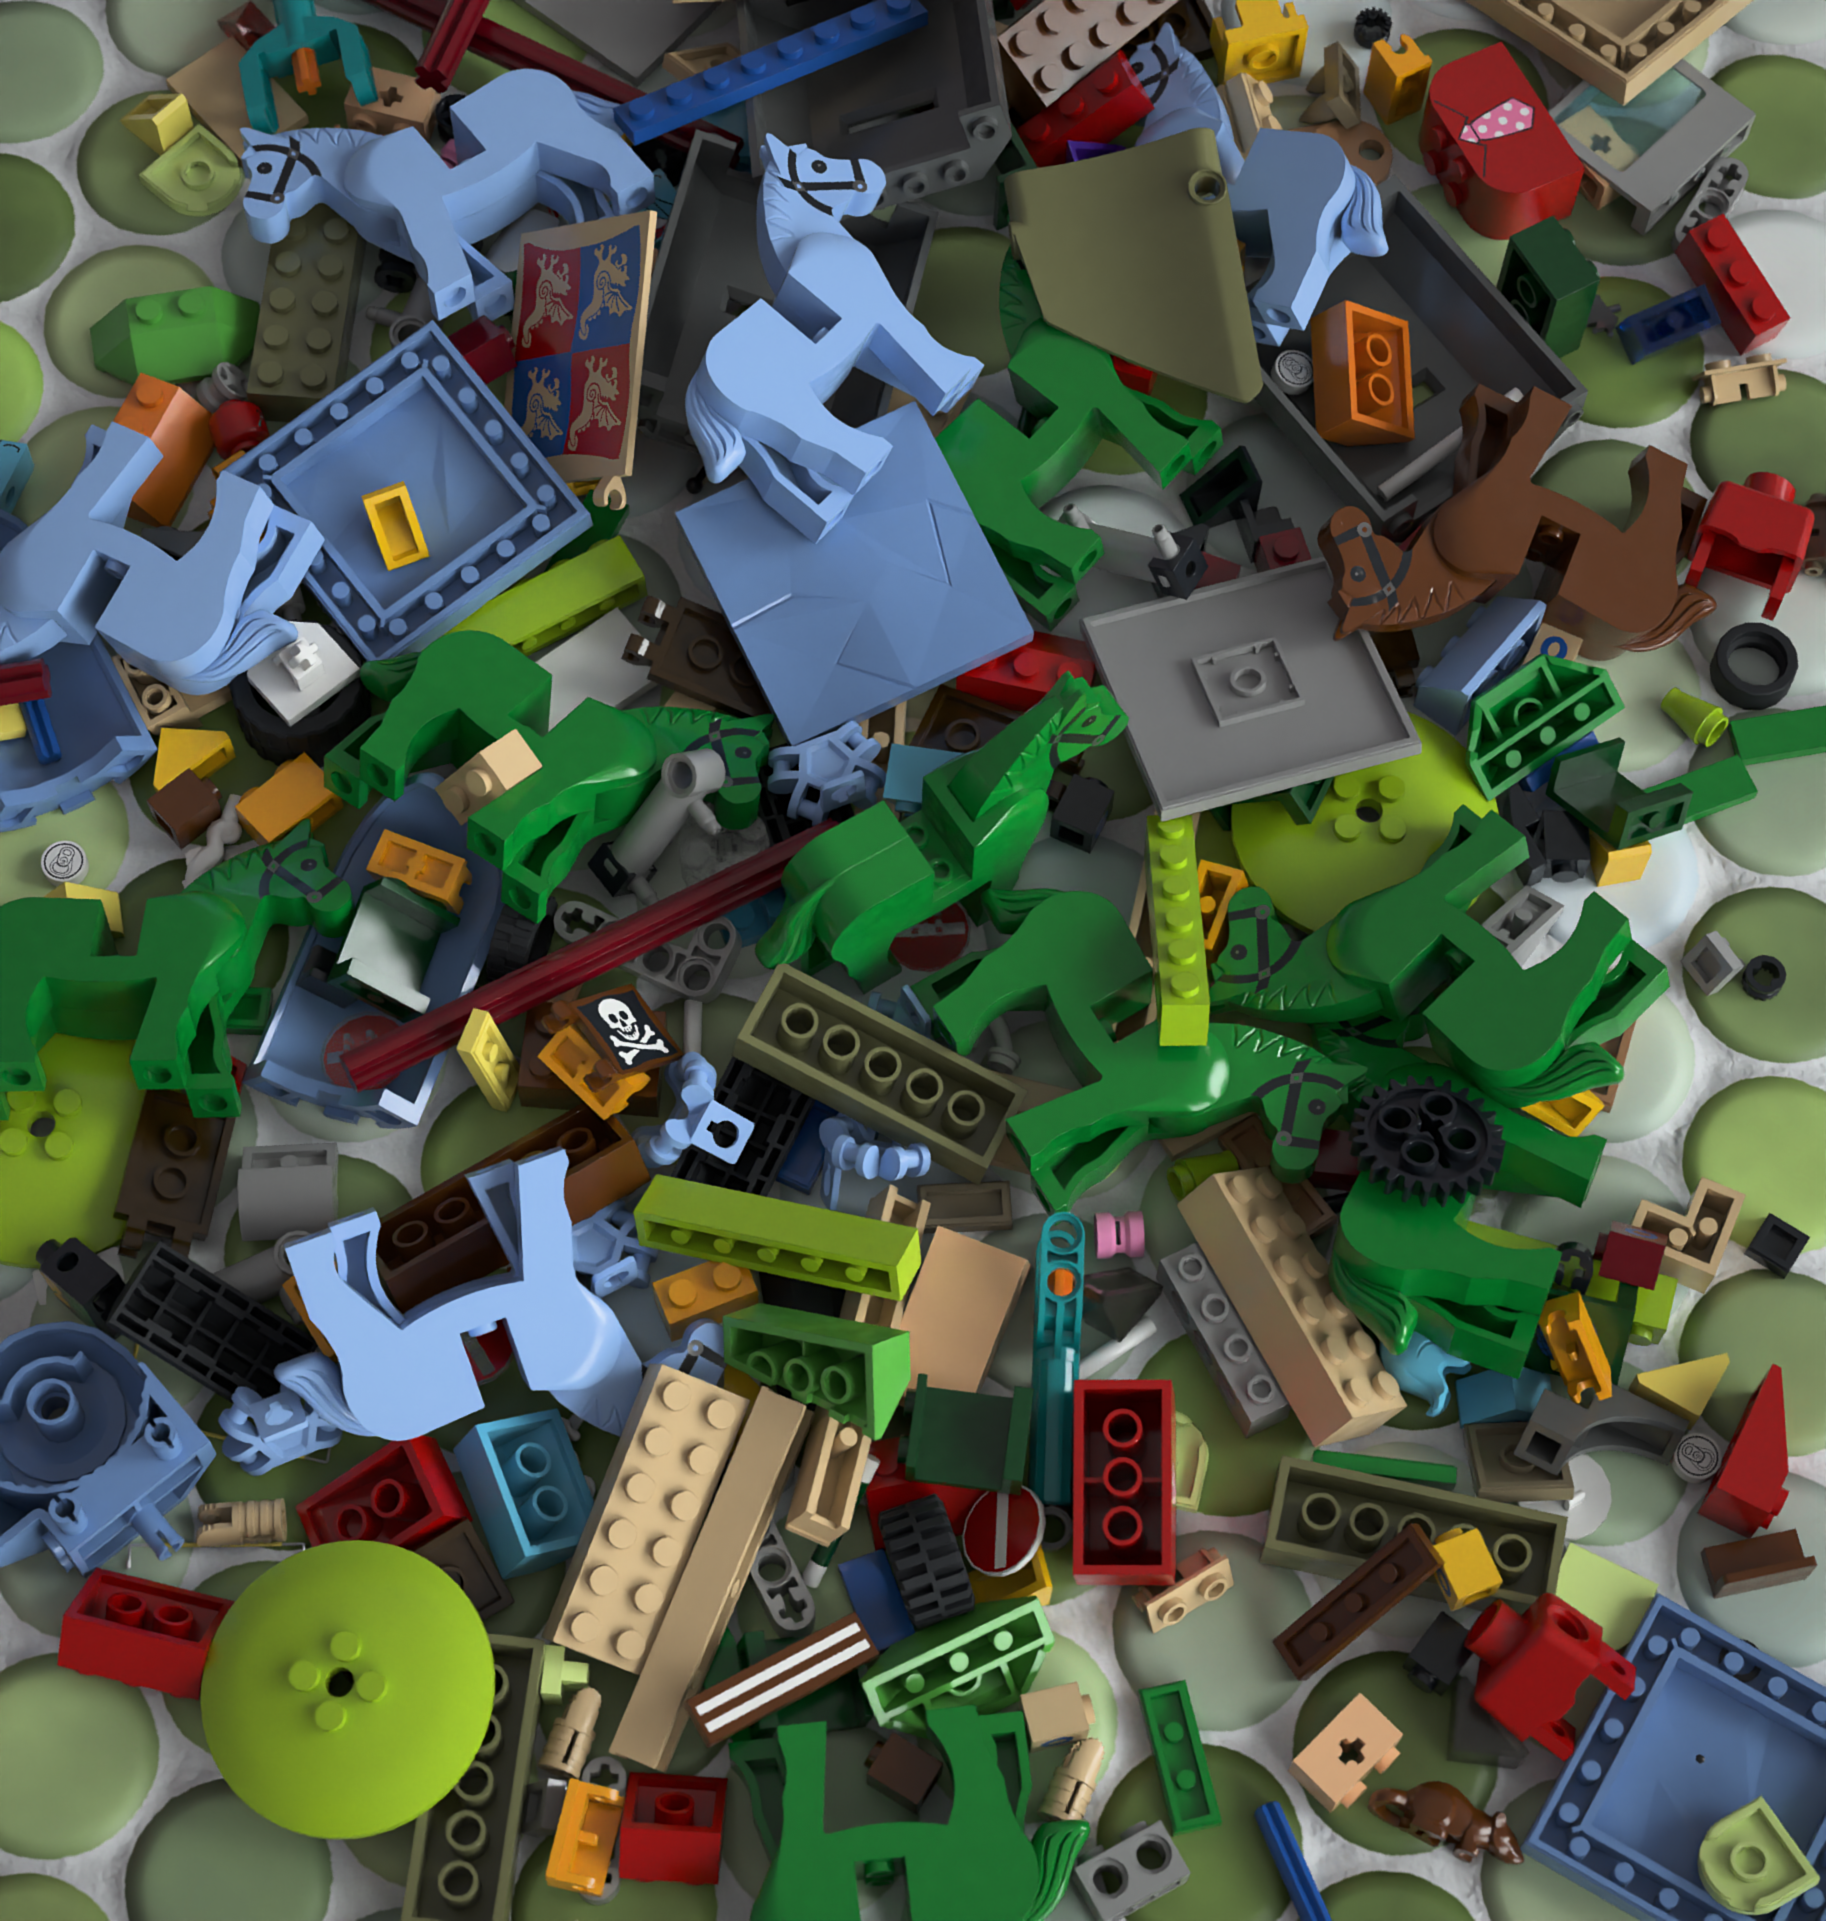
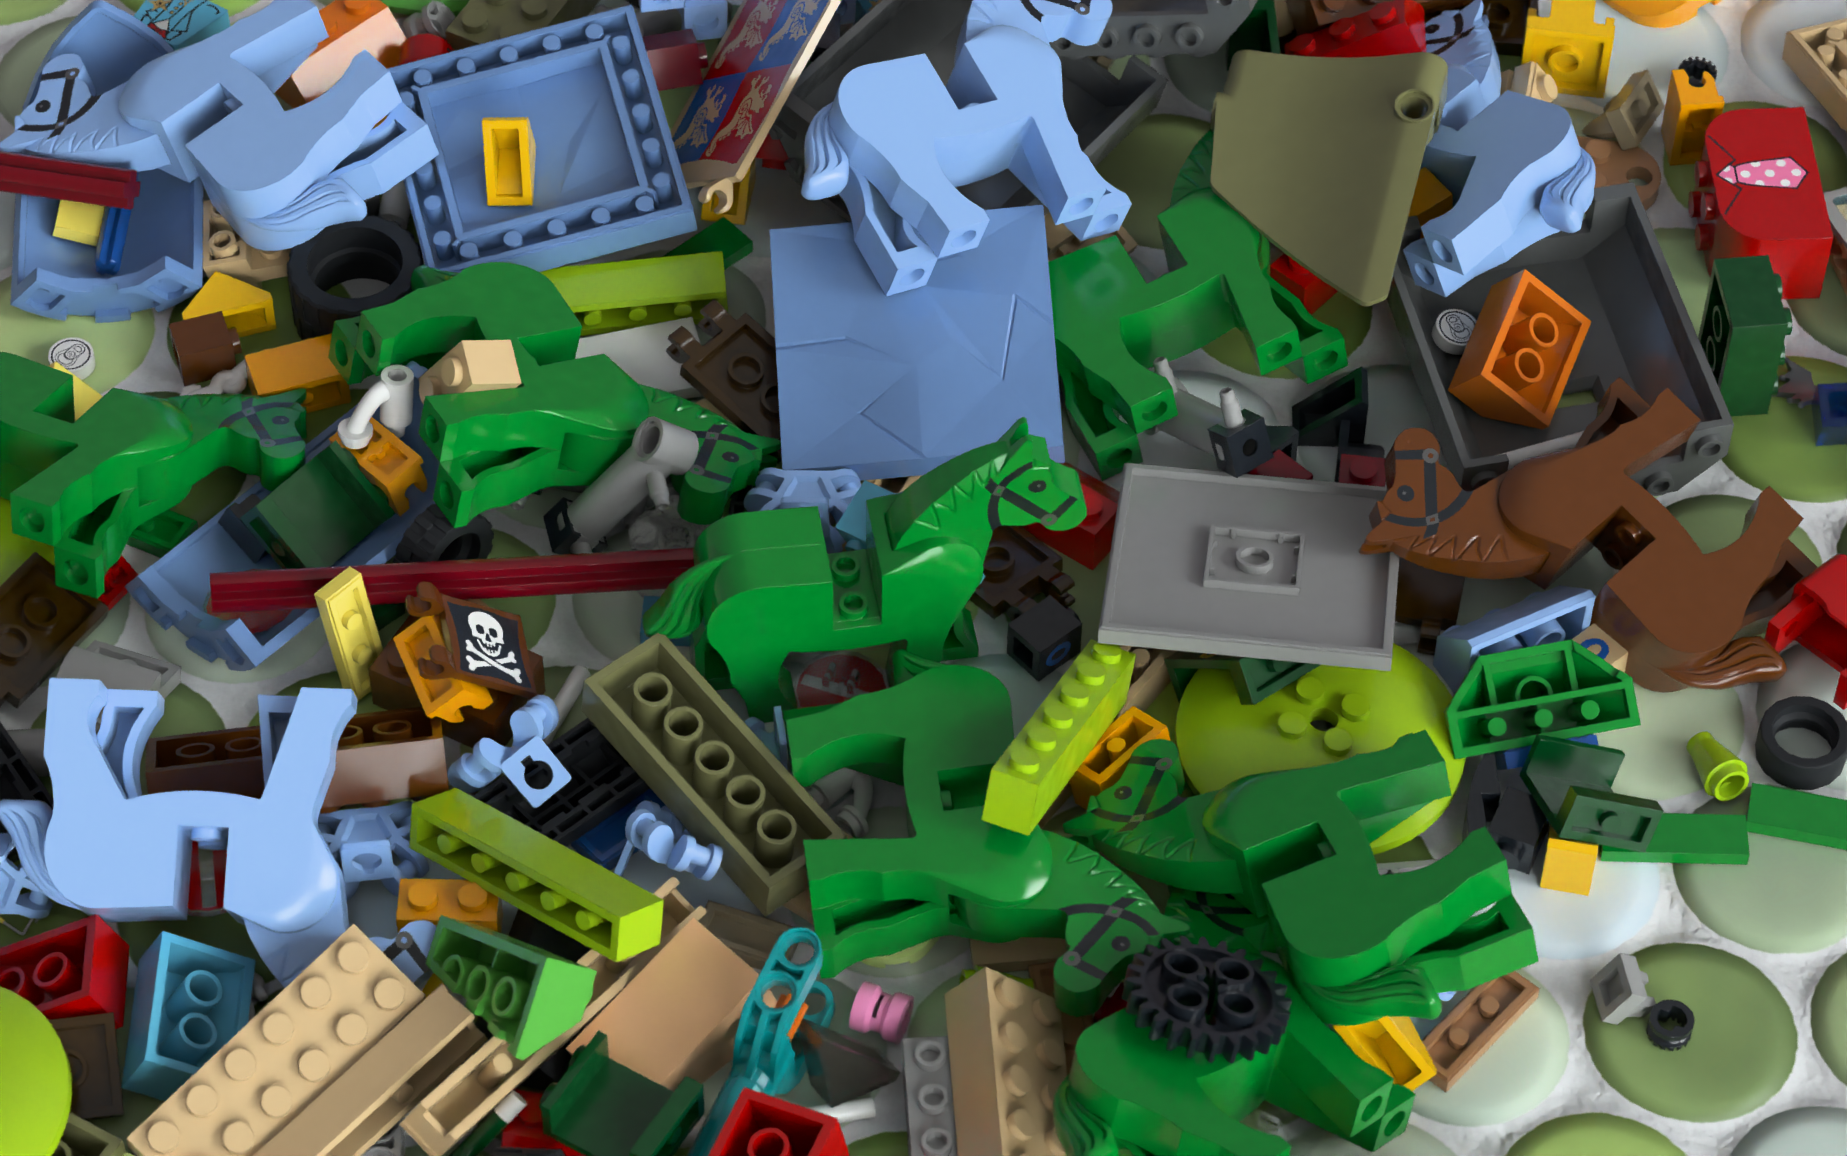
camera: 25 degrees right, 15 degrees down
(303, 673) = (359, 255): white piece -> none
(413, 819) = (395, 400): none -> white plant
(681, 961) = (586, 628): light grey beam -> none

